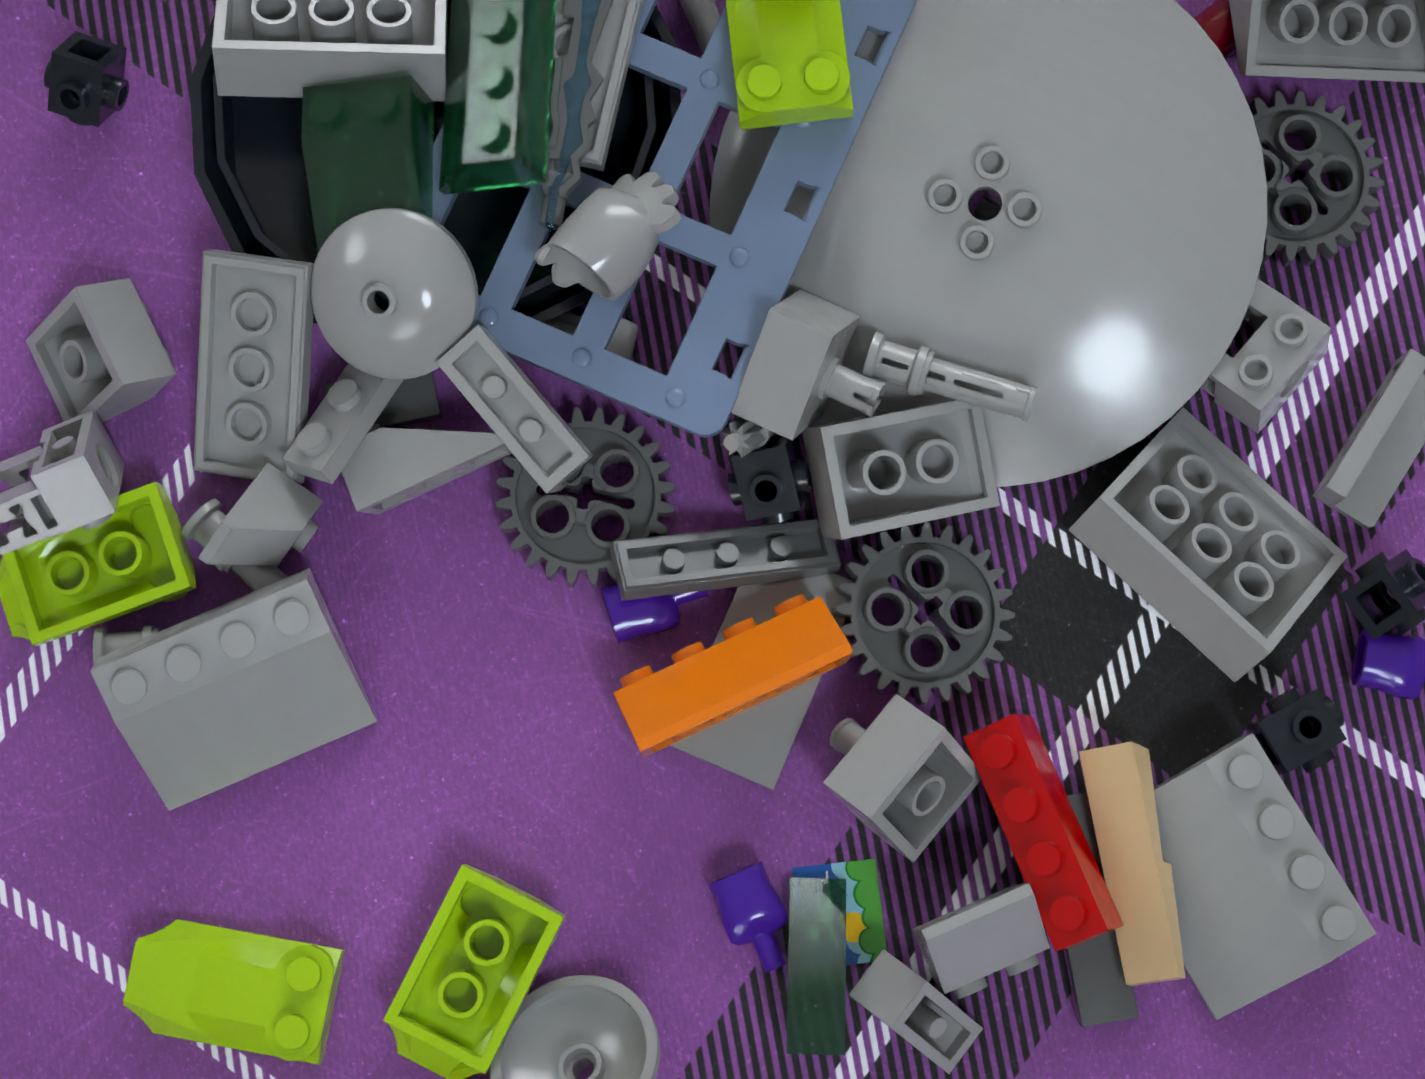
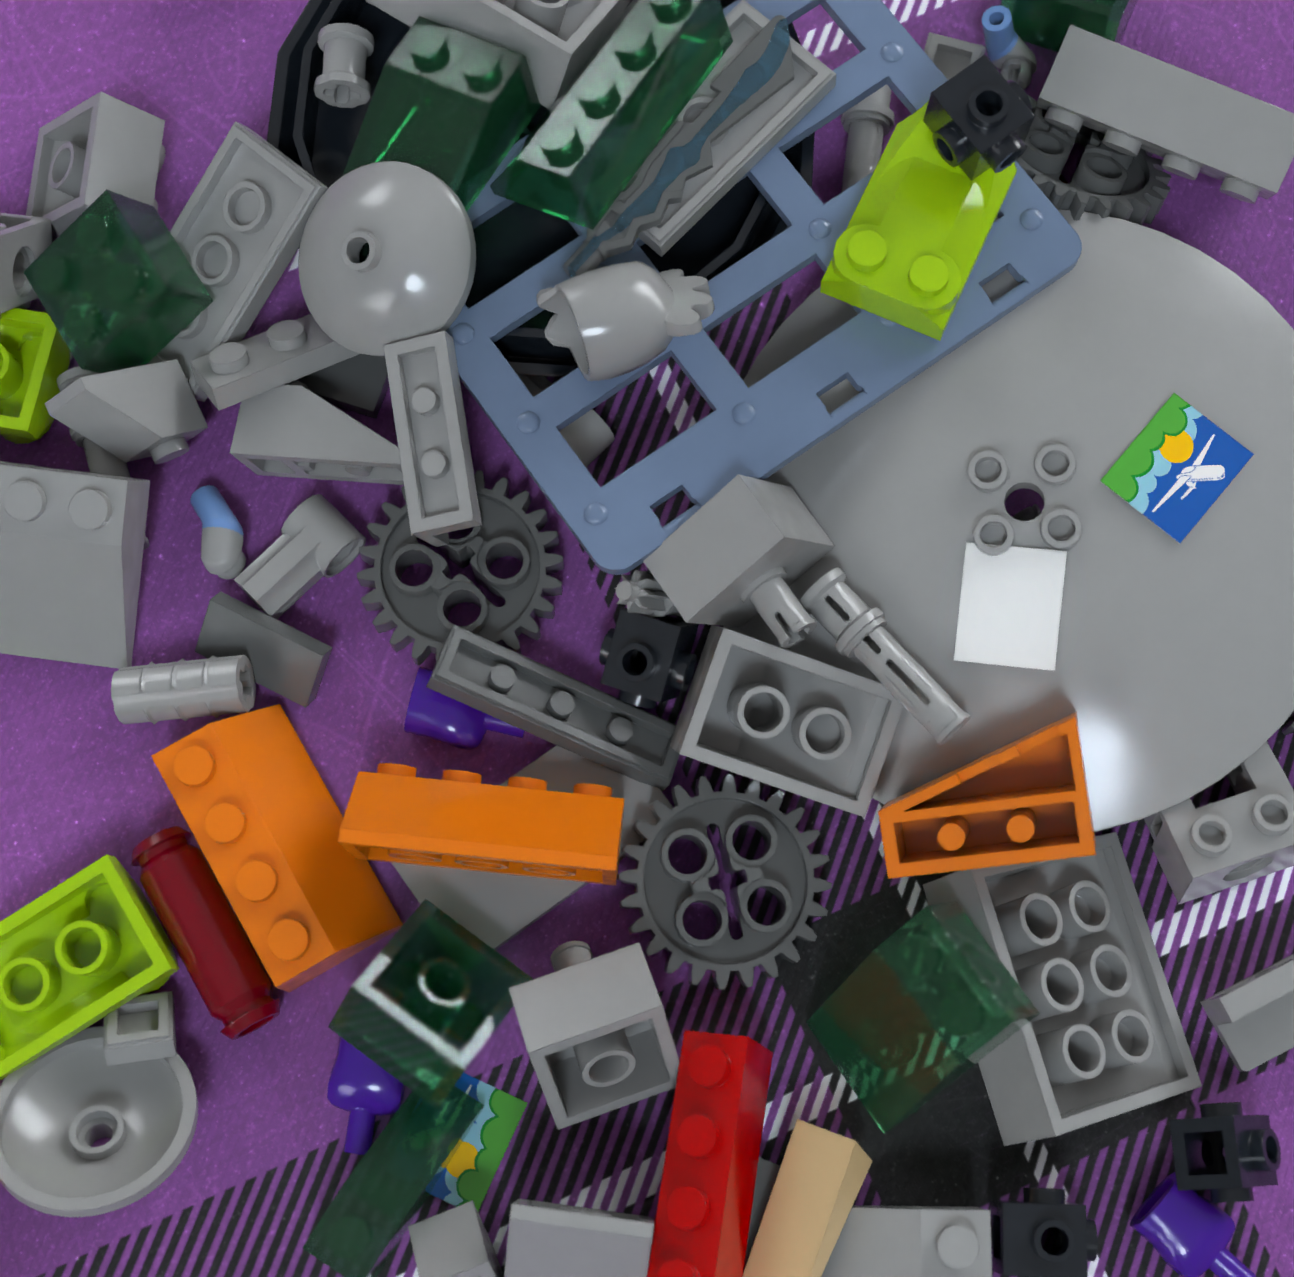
camera: 30 degrees right, 5 degrees down
(187, 433) = (117, 285): none -> clear green brick
(259, 157) = (344, 65): none -> light grey bush
(383, 575) = (220, 533): none -> arm
(434, 710) = (183, 689): none -> light grey axle
(459, 546) = (312, 545): none -> light grey piece
(473, 645) = (279, 654): none -> dark grey tile
(565, 877) = (205, 932): none -> dark red axle
(565, 976) = (141, 1030): none -> light grey tile
(578, 780) = (276, 844): none -> orange slope
(770, 828) = (428, 1003): none -> clear green brick
(1019, 288) = (1010, 607): none -> white sticker
(1082, 114) = (1177, 467): none -> sticker
(1094, 444) = (997, 810): none -> orange wedge
(1123, 625) = (919, 1013): none -> clear green slope

